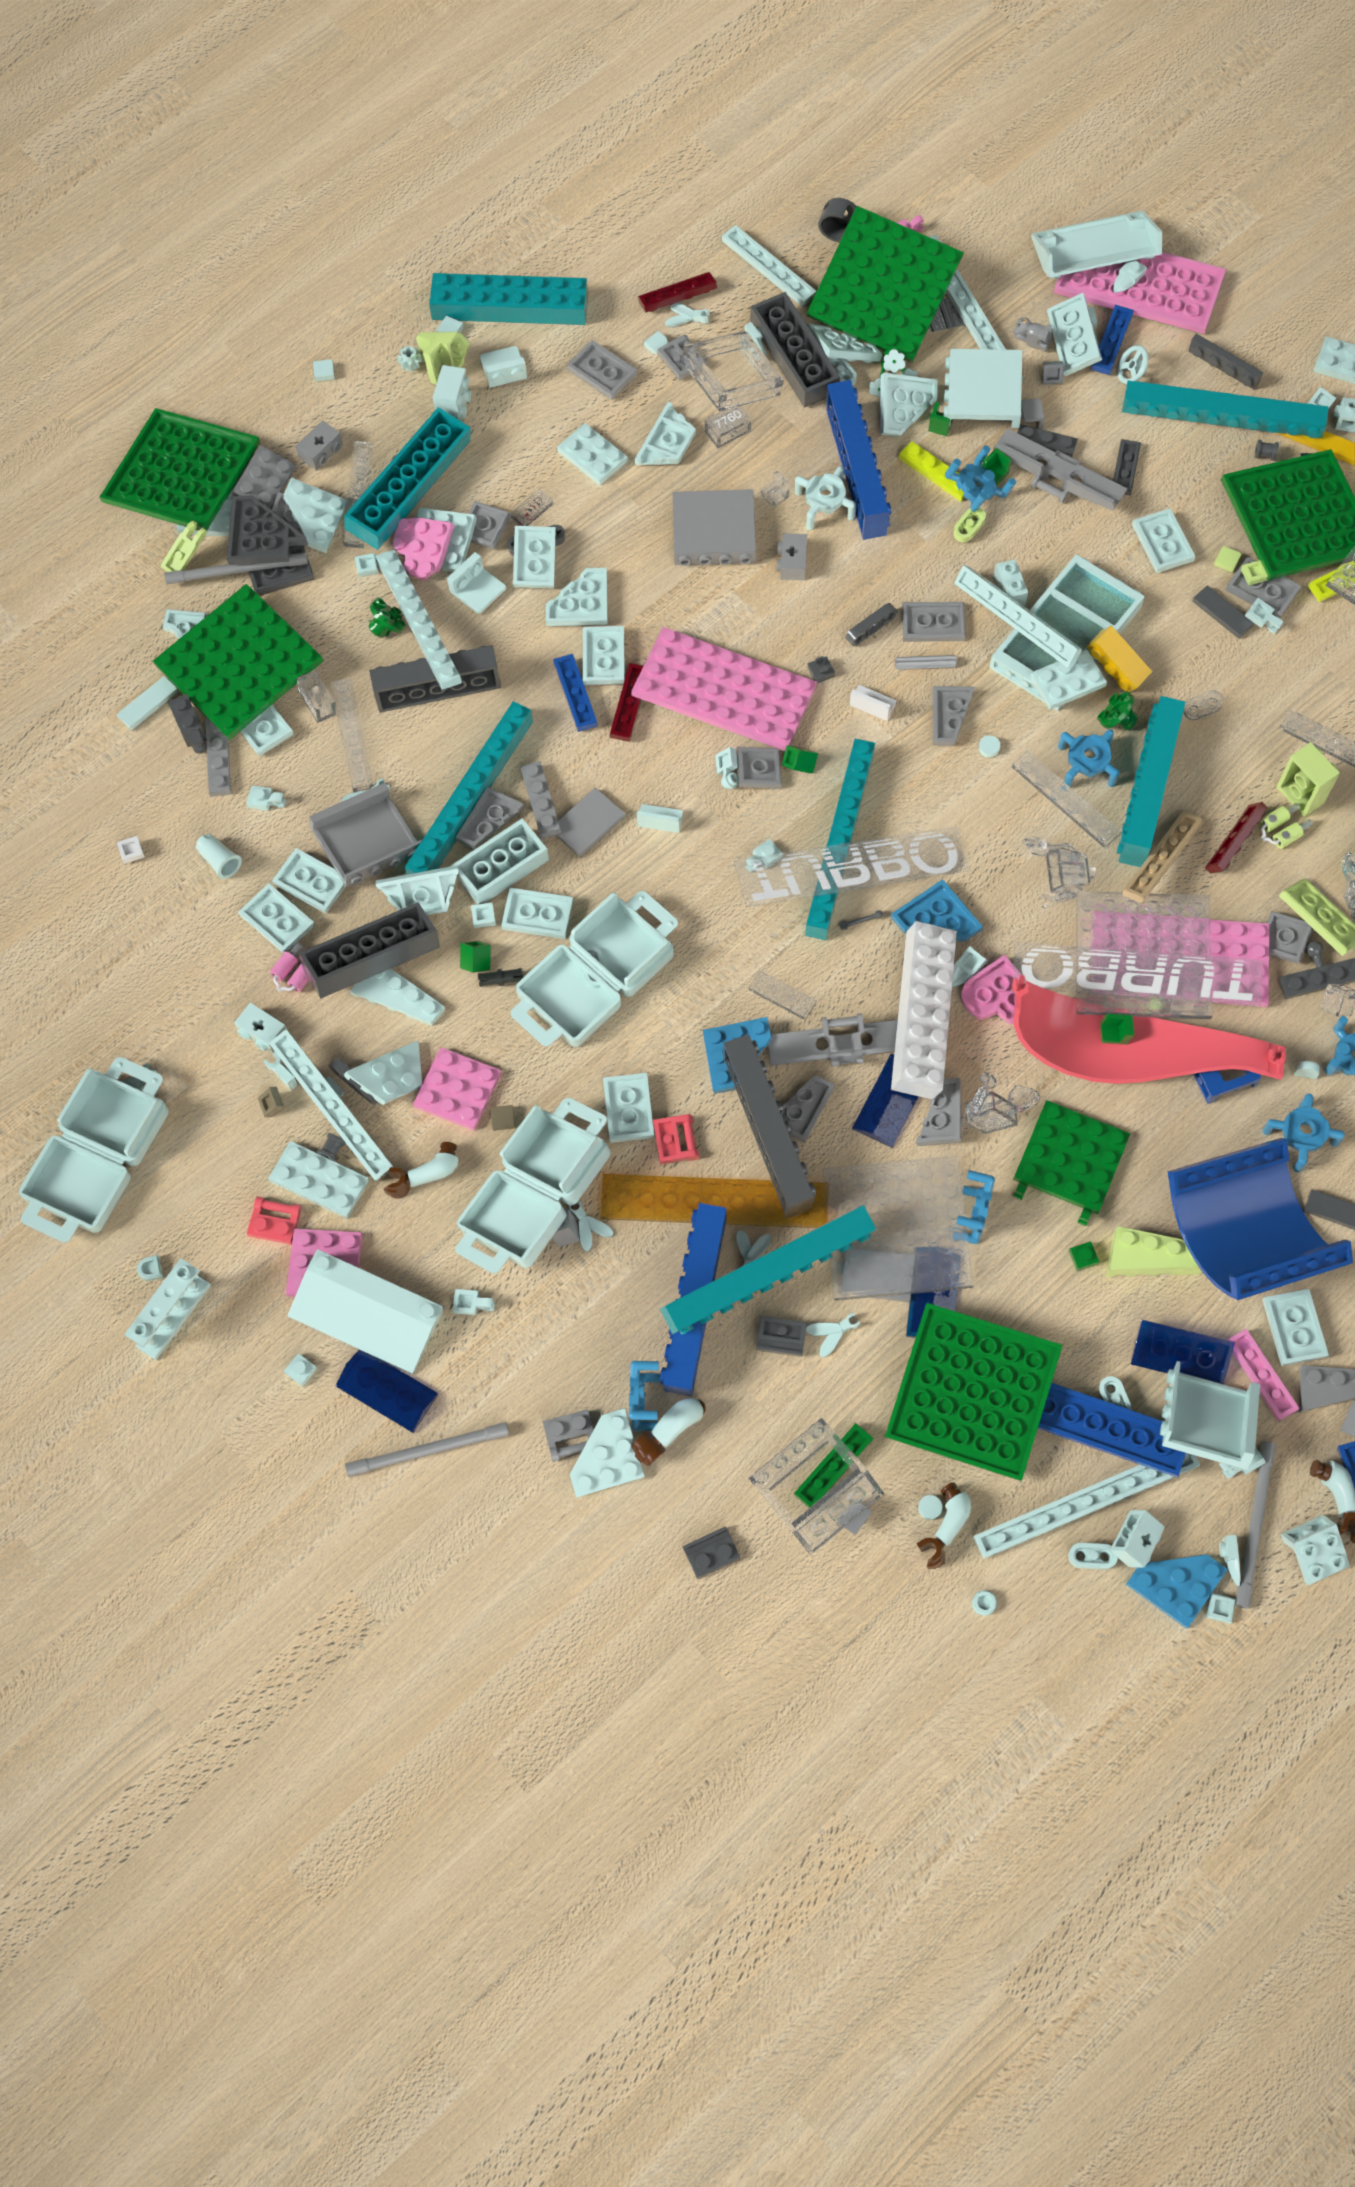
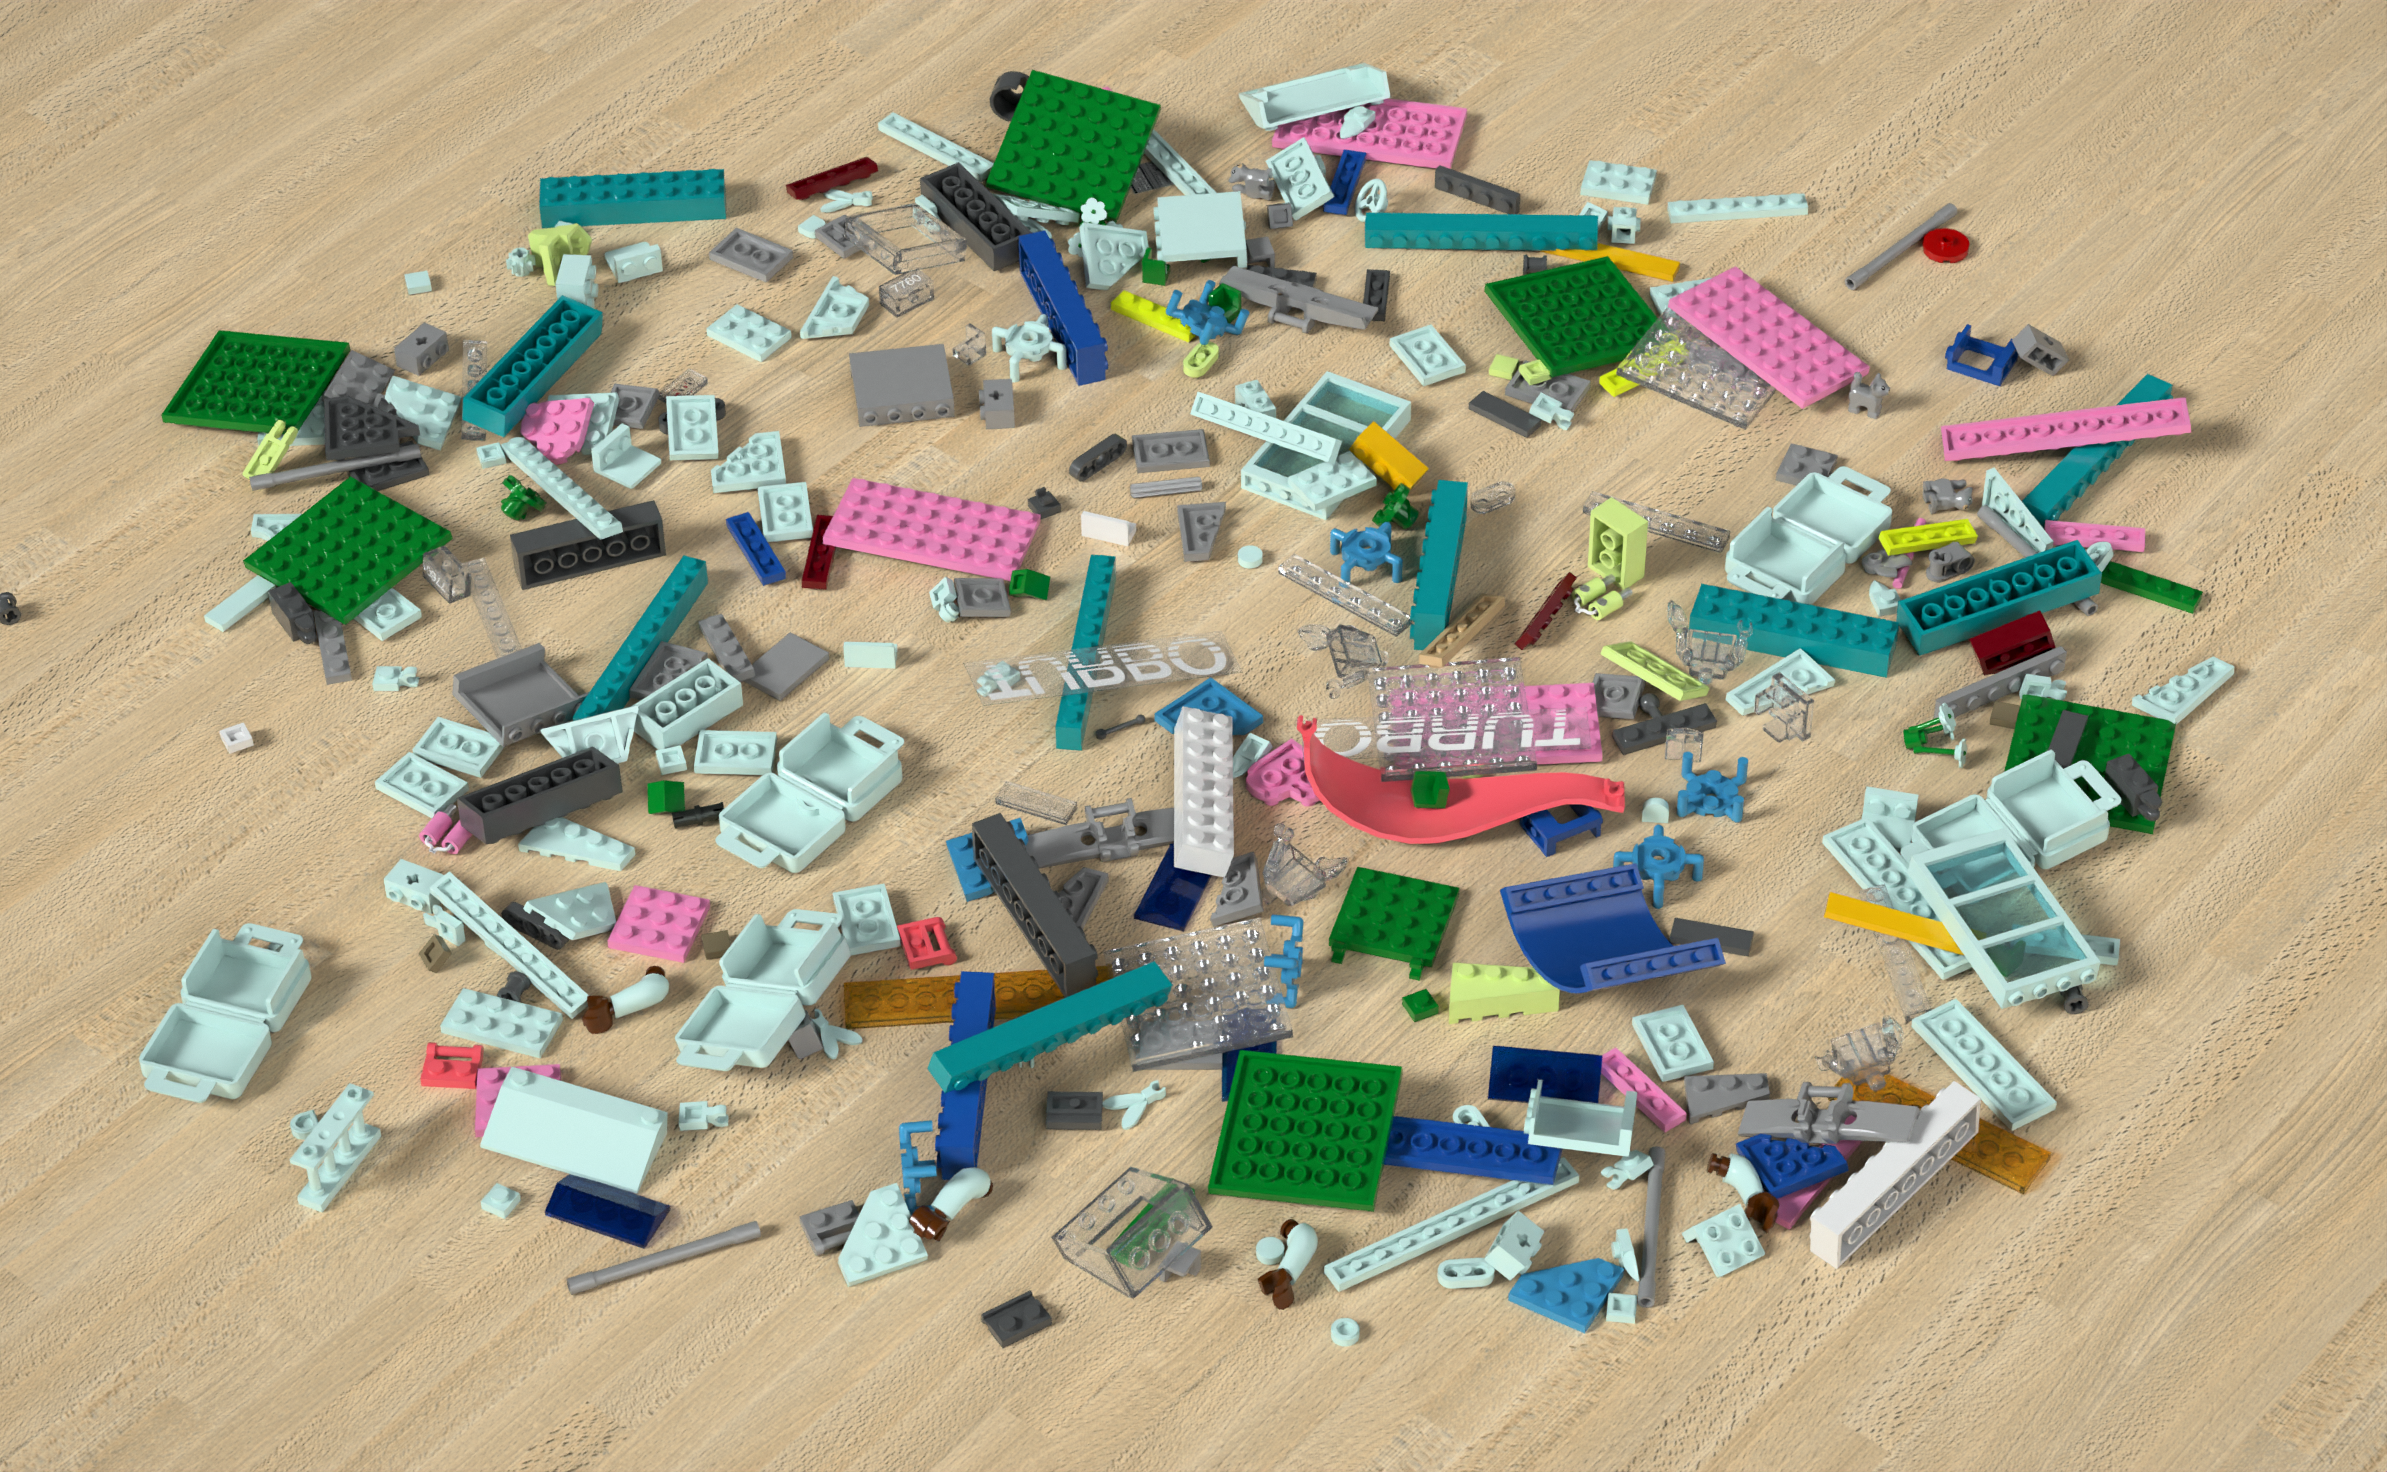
camera: 10 degrees left, 25 degrees down
(218, 856) = (346, 733): light aqua plant -> none

